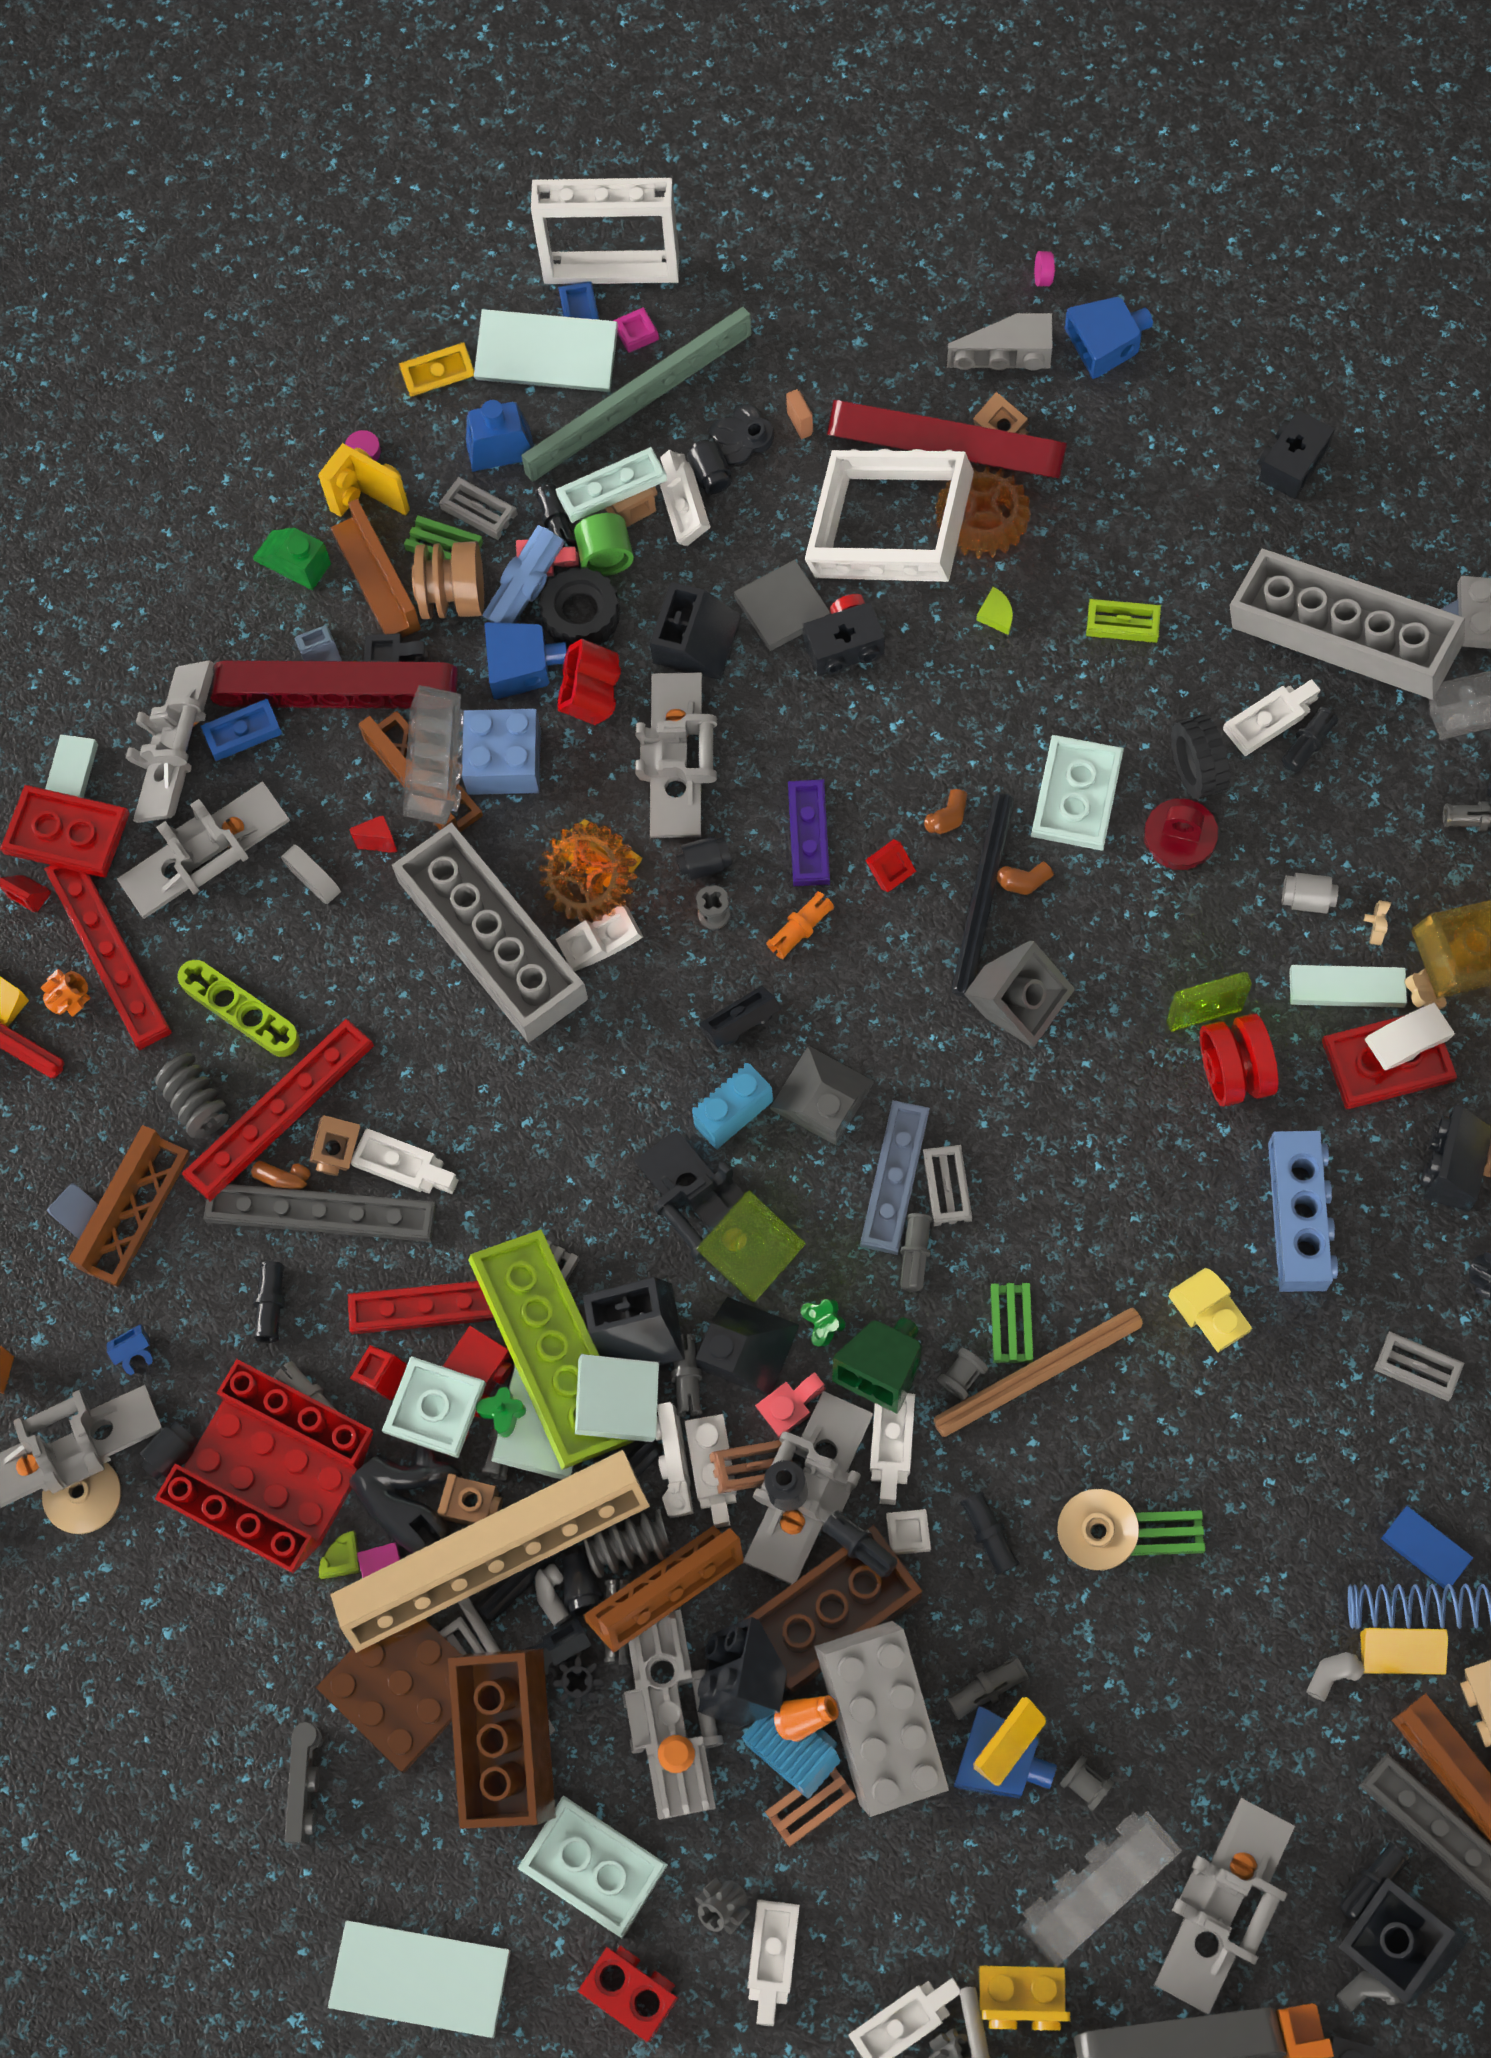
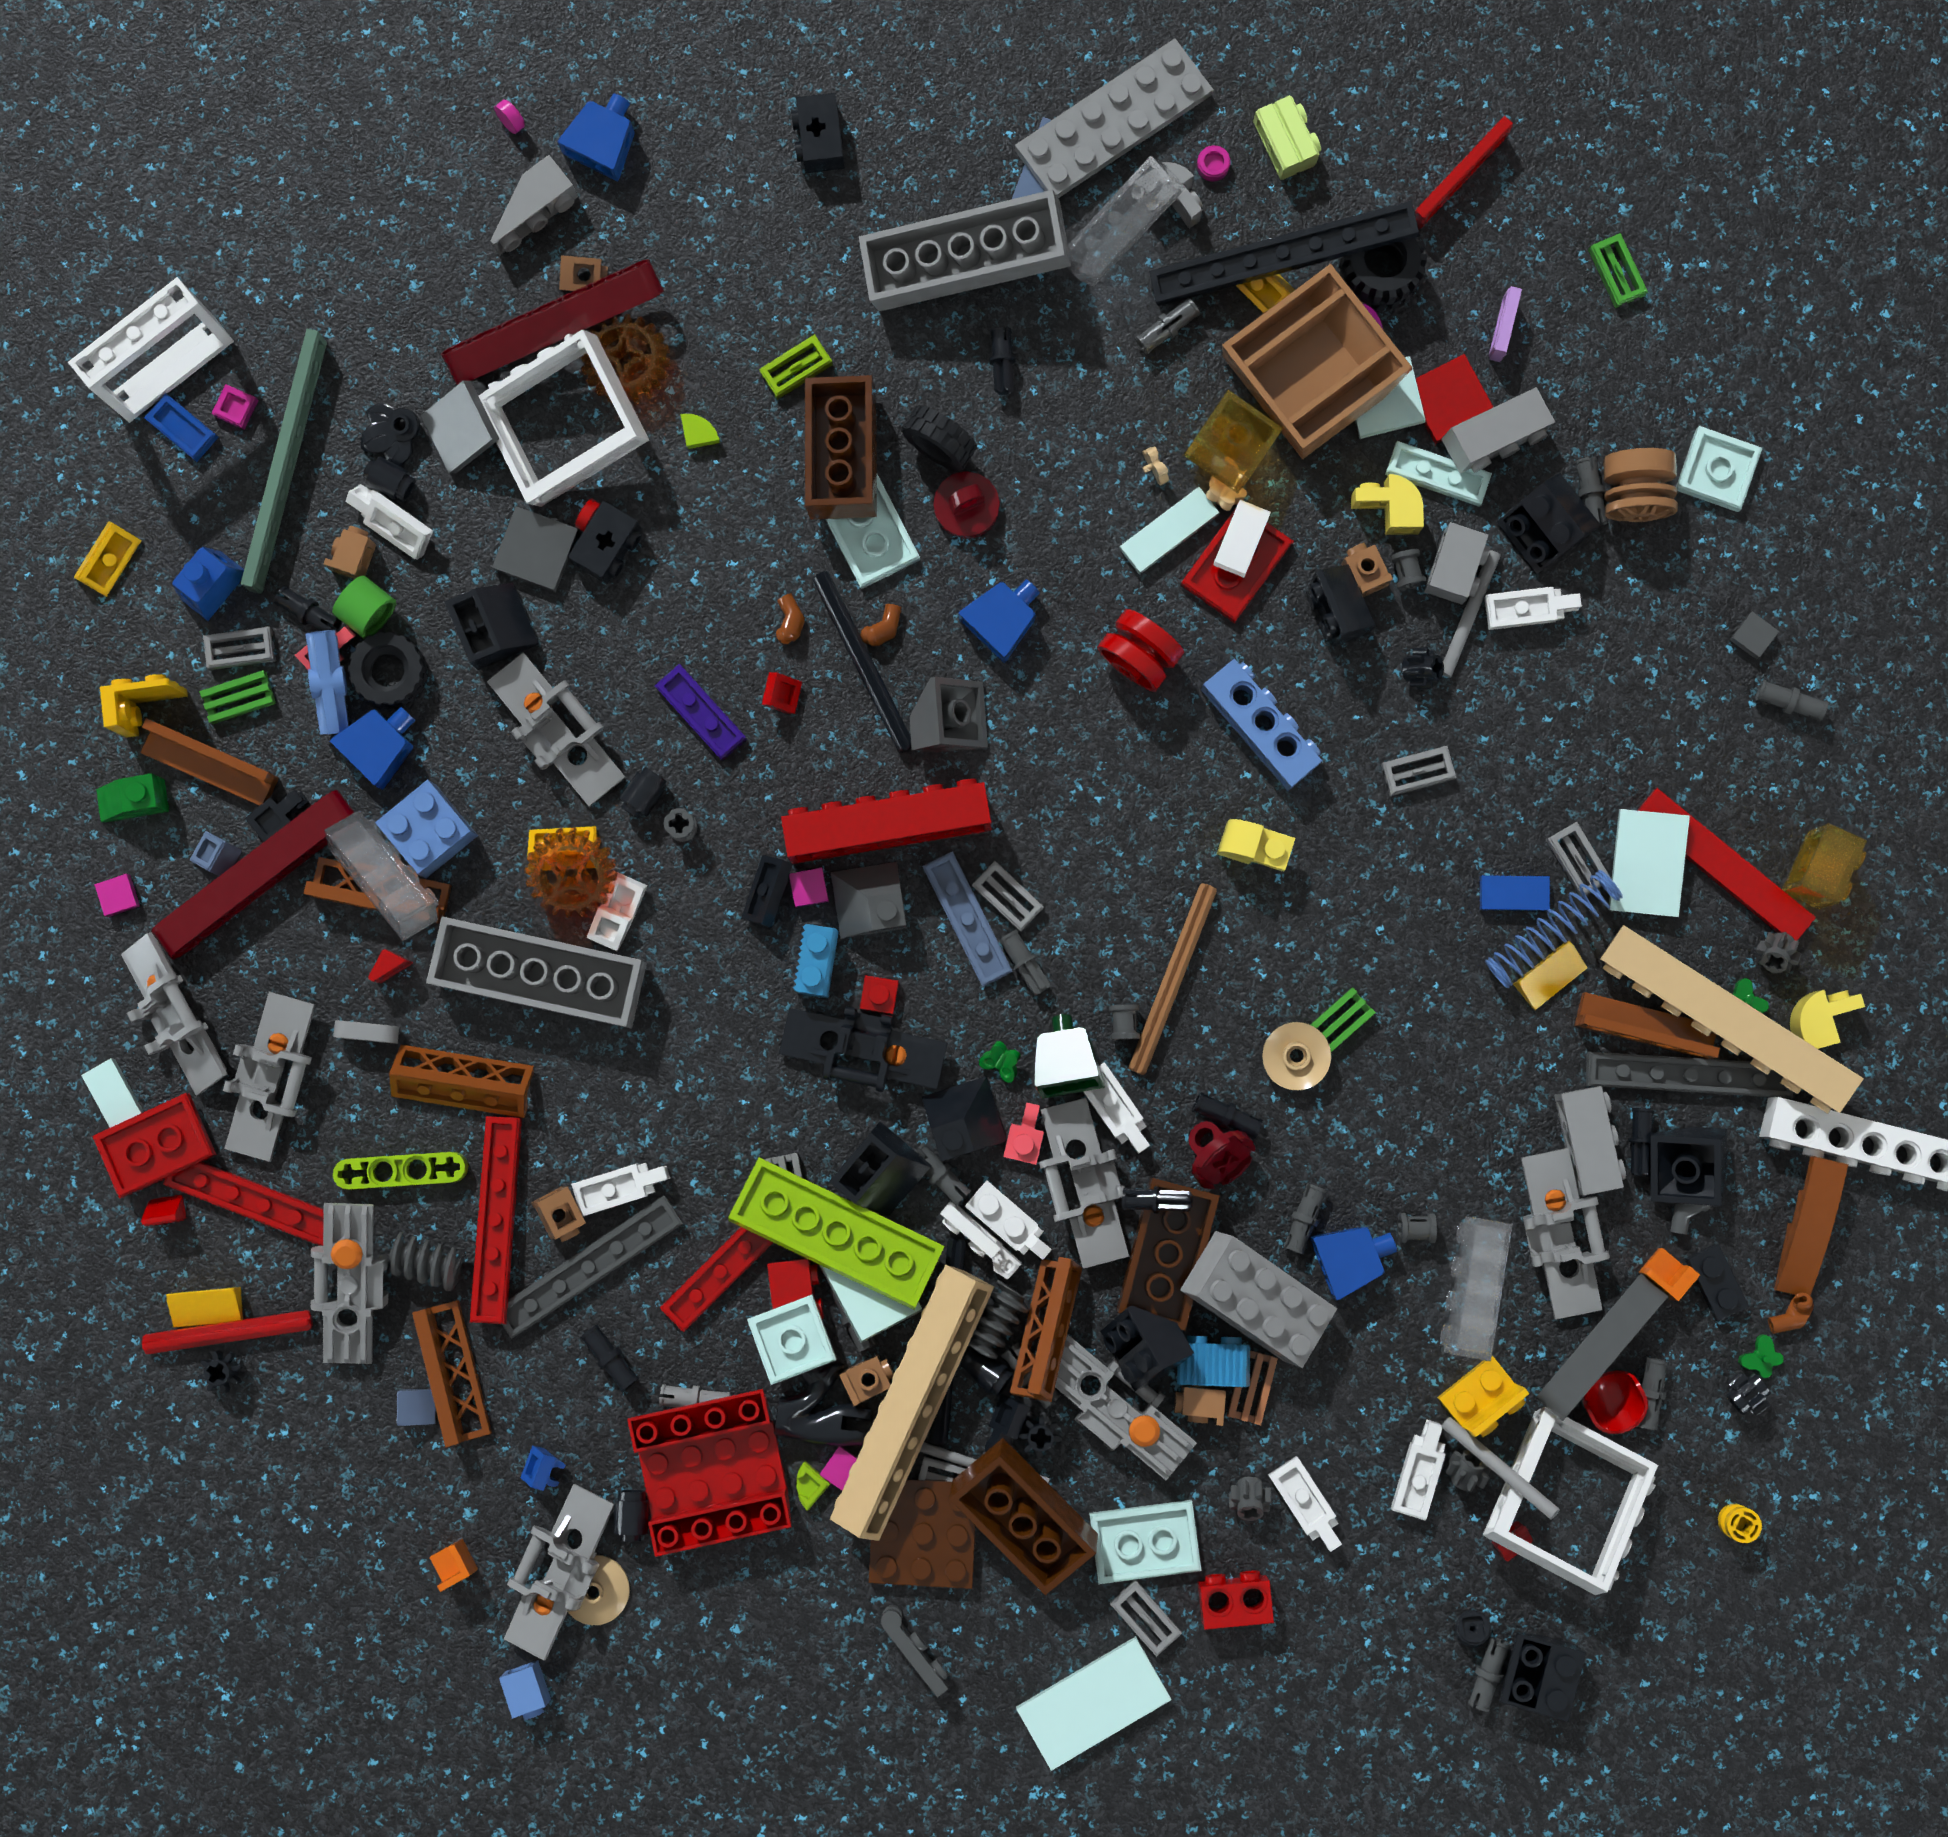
camera: 40 degrees left, 15 degrees up
(65, 992) = (265, 1262): orange gear -> none
(122, 1067) = (359, 1282): none -> light grey piece
(214, 621) = (117, 895): none -> dark pink tile
(241, 730) = (215, 963): blue plate -> none
(279, 1178) = (539, 1268): dark orange arm -> none
(344, 975) = (458, 1086): none -> dark orange fence
(366, 441) = (107, 667): dark pink tile -> none
(379, 1372) = (728, 1341): red slope -> none
(449, 580) = (273, 728): medium nougat wheel -> none
(503, 1410) = (841, 1304): green piece -> none
(535, 1976) = (1166, 1640): none -> light grey tile
(546, 350) = (181, 479): light aqua tile -> none
(547, 1597) = (972, 1397): light grey arm -> none
(589, 682) = (446, 725): red brick -> none
(611, 484) = (331, 556): light aqua tile -> none
(616, 1398) = (910, 1232): light aqua tile -> none
(722, 1472) = (1020, 1221): nougat tile -> none
(750, 1246) = (914, 1053): clear neon green tile -> none
(750, 1777) = (1201, 1403): none -> medium nougat brick
(764, 1179) = (879, 994): none -> red plate
(778, 1043) = (808, 887): none -> dark pink tile
(789, 1496) = (1088, 1202): black brick -> none
(799, 413) = (422, 383): nougat tile -> none
(800, 925) = (752, 788): orange pin -> none
(801, 465) = (459, 427): none -> tile
(805, 1716) = (1212, 1341): orange cone -> none
(891, 1034) = (886, 822): none -> red brick
(908, 1532) = (1172, 1157): white tile -> none
(953, 1561) = (1221, 1158): none -> dark red tile
(1010, 1291) = (1109, 936): bright green tile -> none
(1010, 1742) = (1352, 1246): yellow slope -> none
(1107, 703) = (840, 447): none -> reddish brown brick
(1135, 945) = (1001, 617): none -> blue torso
(1208, 1001) = (1087, 622): clear neon green tile -> none
(1270, 716) = (961, 363): white hinge -> none
(1309, 893) = (1092, 481): light grey brick -> none
(1323, 1837) = (1590, 1139): none -> light grey brick
(1332, 1669) = (1515, 1024): light grey arm -> none

